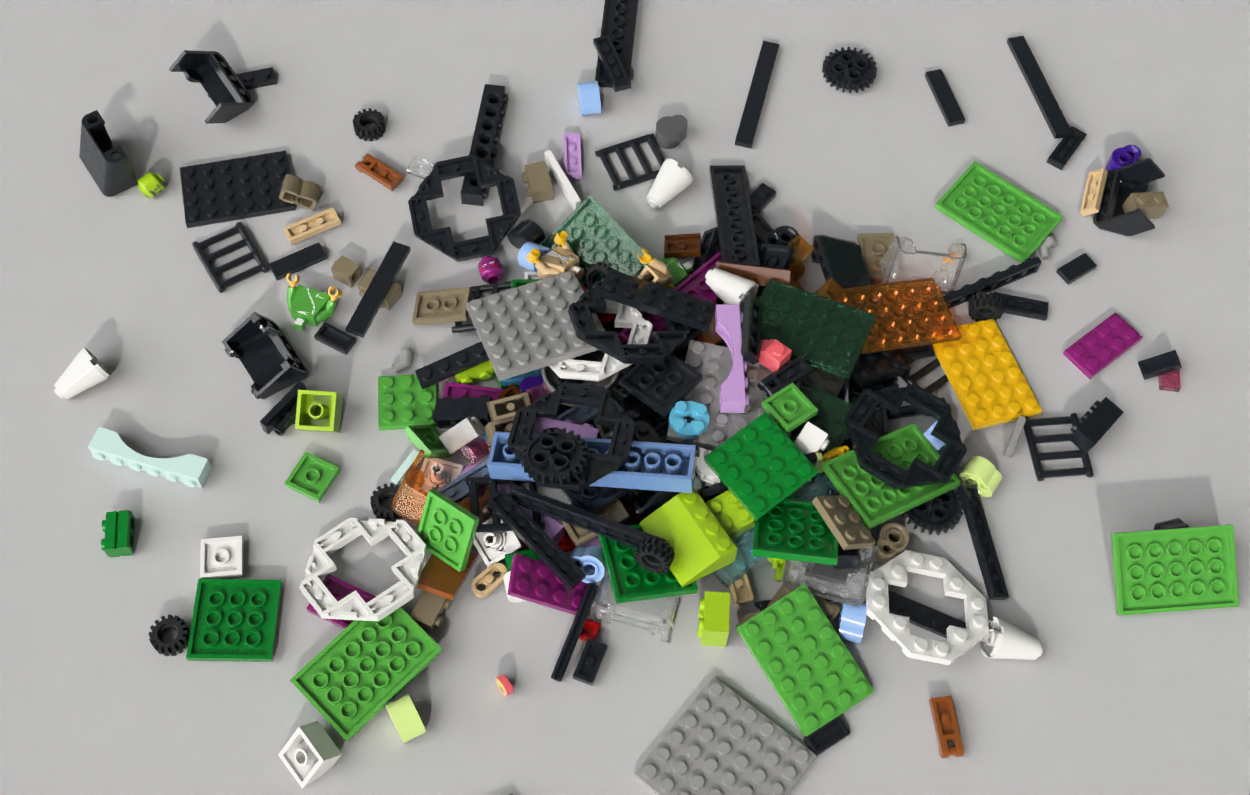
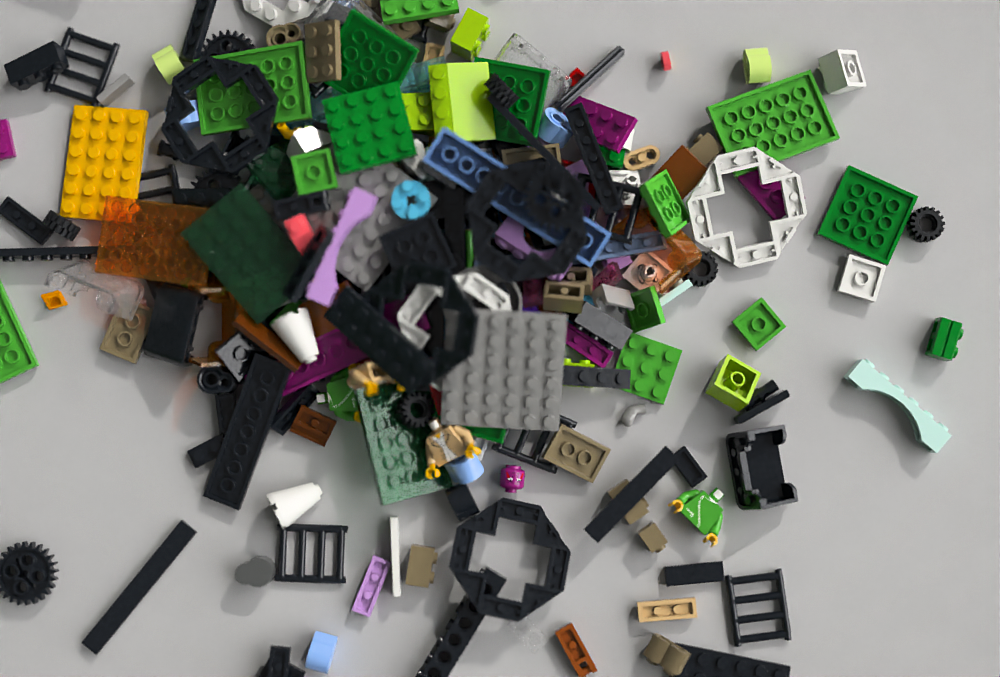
camera: 155 degrees left, 25 degrees up
(81, 375) = (936, 521): white cone -> none
(590, 662) = (587, 50): black plate -> none

